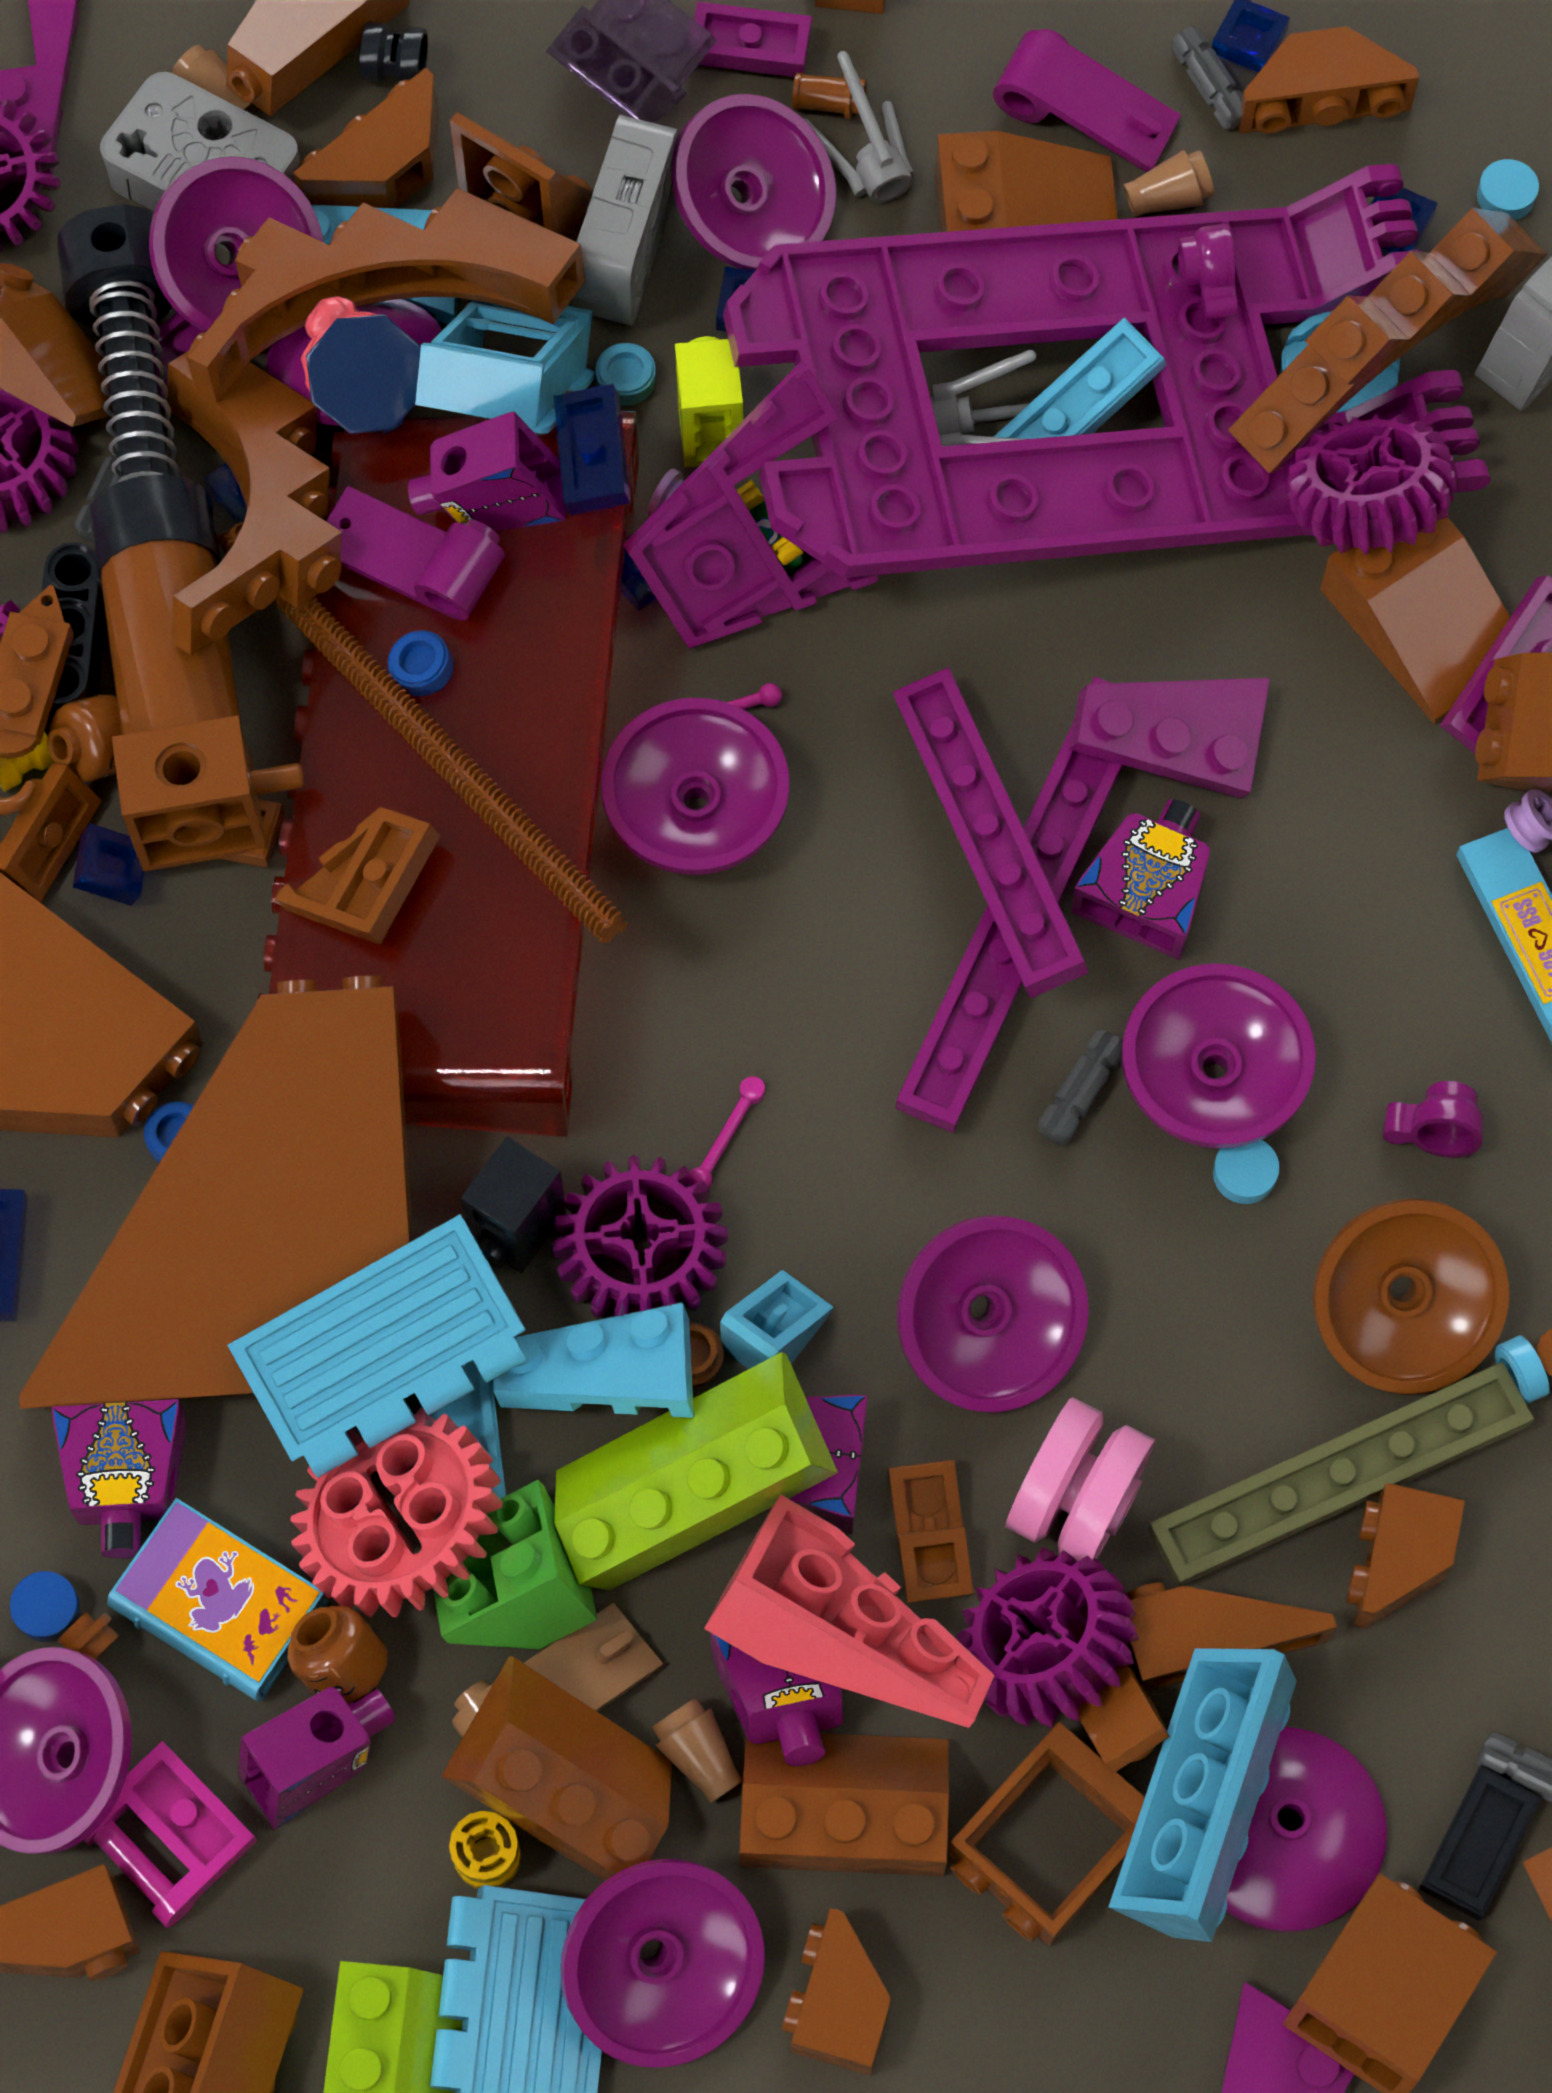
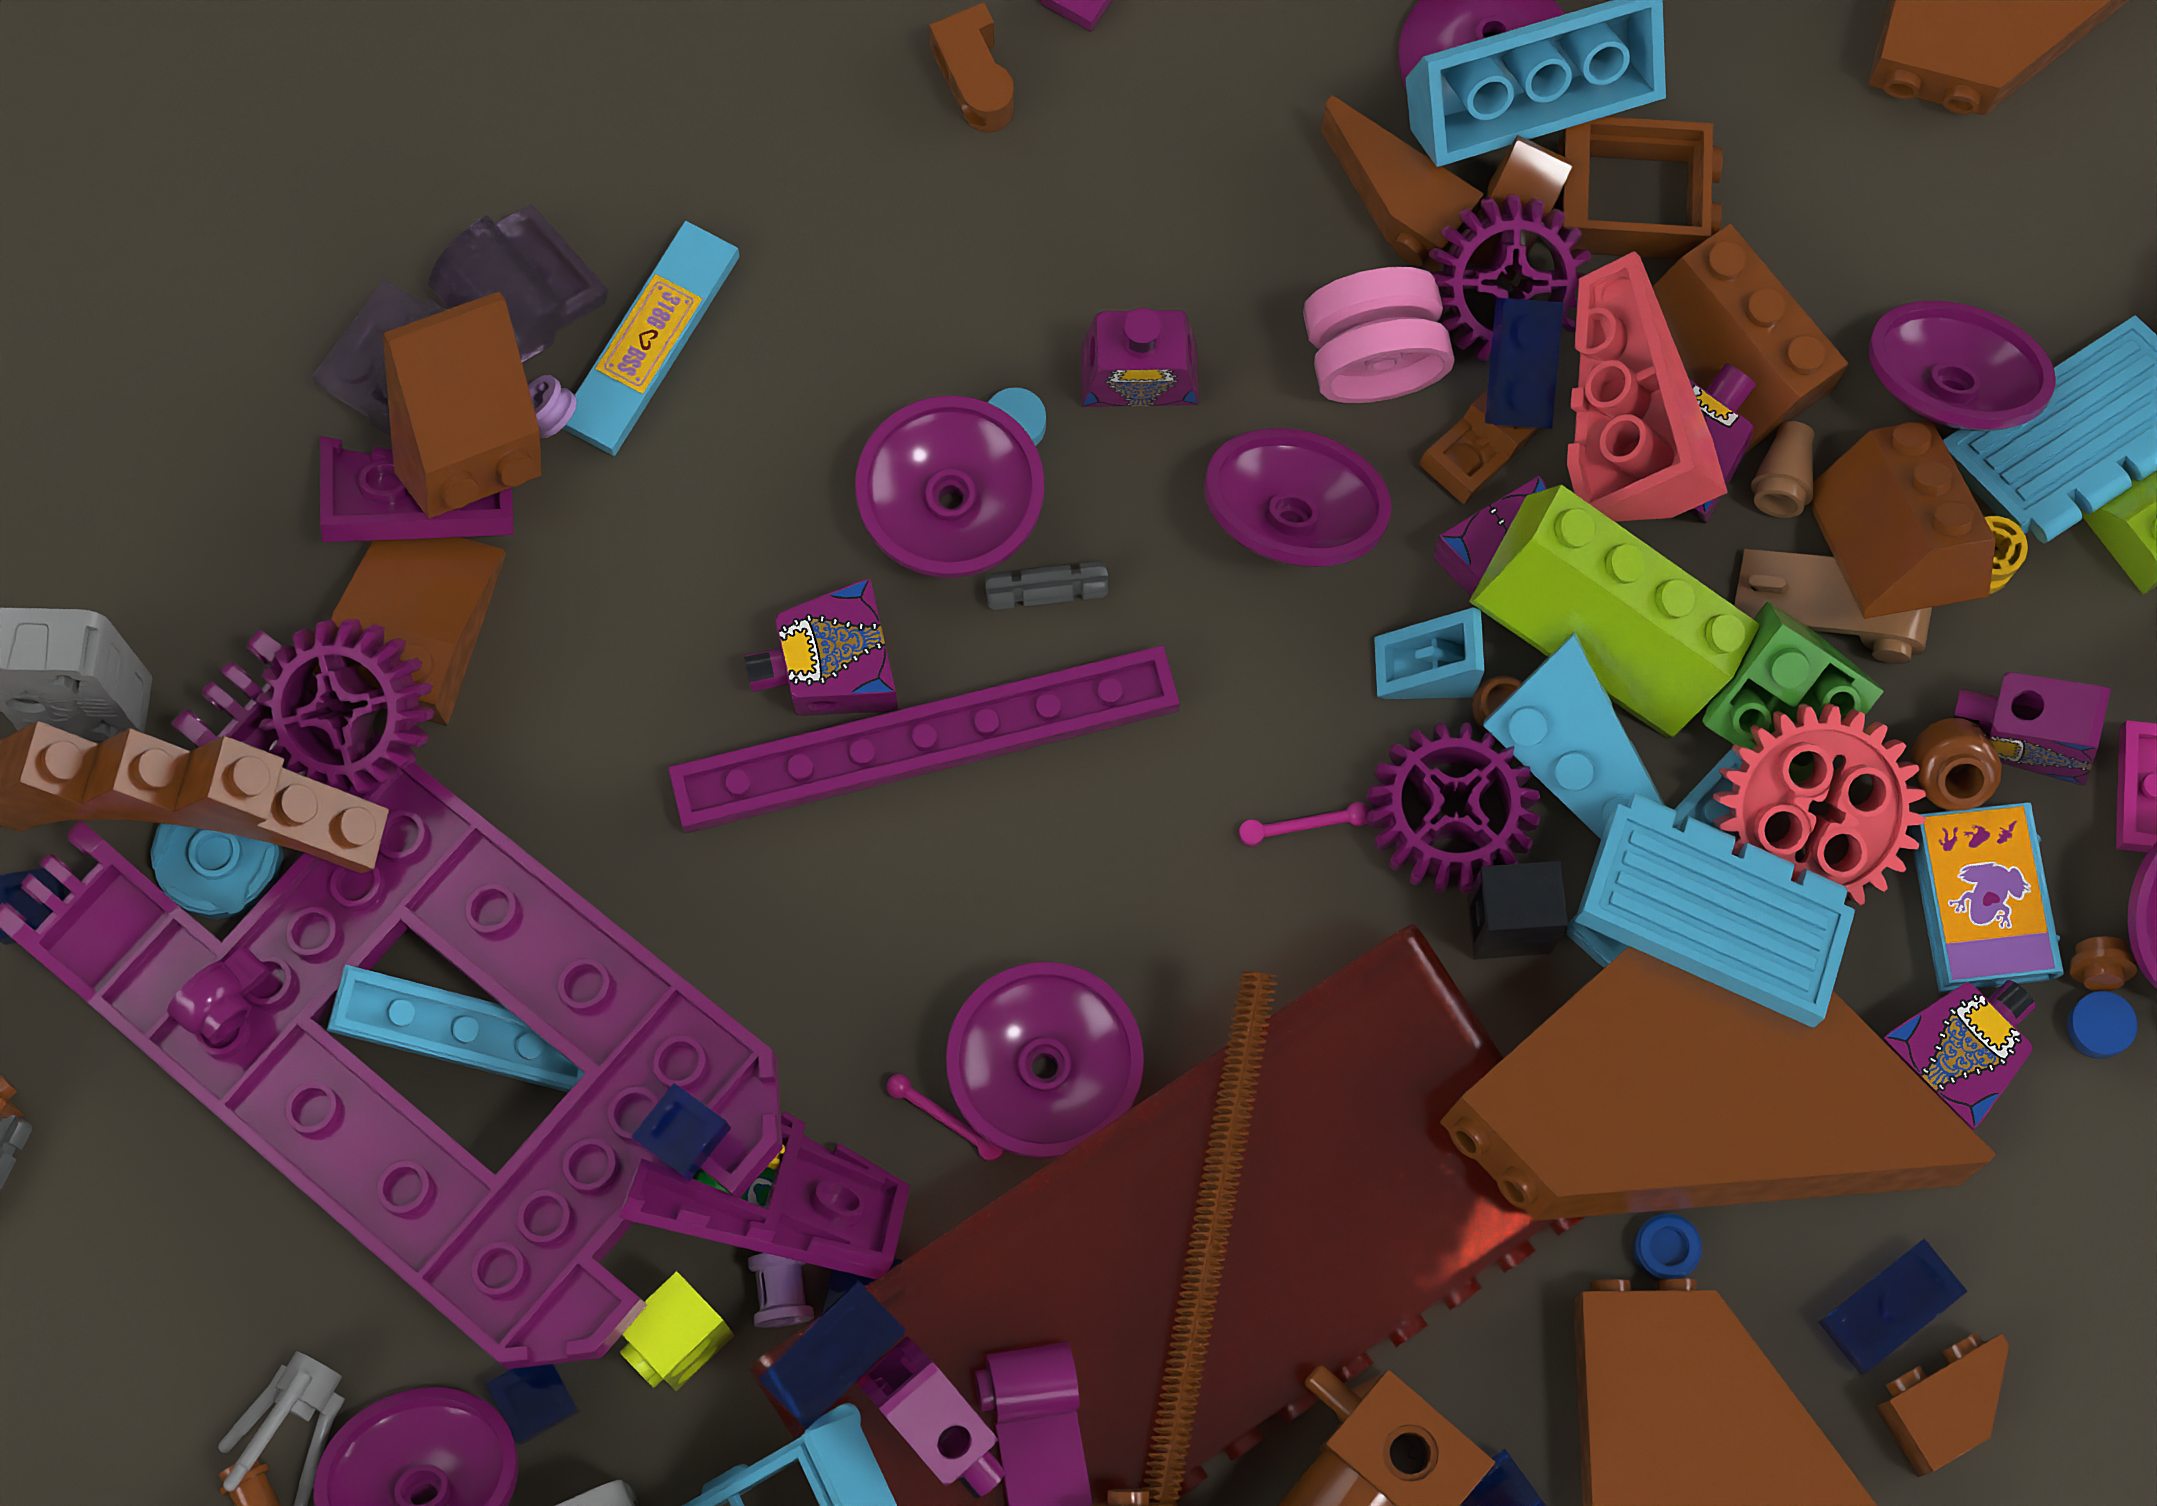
camera: 130 degrees left, 5 degrees up
(365, 876) = (1363, 1236): dark orange wing -> none
(421, 663) = (1133, 1357): blue tile -> none
(629, 369) = (685, 1456): medium azure tile -> none
(834, 453) = (681, 1132): none -> clear blue plate
(844, 2001) = (1875, 238): dark orange slope -> none
(955, 414) = (520, 1119): light grey plant -> none
(960, 1582) = (1524, 363): none -> clear blue plate
(990, 833) = (896, 798): magenta plate -> none
(1018, 182) = (249, 1237): dark orange slope -> none
(1059, 79) = (94, 1281): magenta door -> none
(1171, 185) = (134, 1121): medium nougat cone -> none
(1176, 729) = (682, 725): magenta wing -> none
(1216, 1288) = (1139, 360): none -> magenta torso
(1339, 1474) = (1201, 185): olive plate -> none
(1408, 1550) = (1228, 99): dark orange slope -> none
(1442, 1124) = (859, 303): magenta piece -> none
(1442, 1321) = (1033, 217): dark orange dish -> none
(1524, 1368) = (1020, 116): medium azure tile -> none

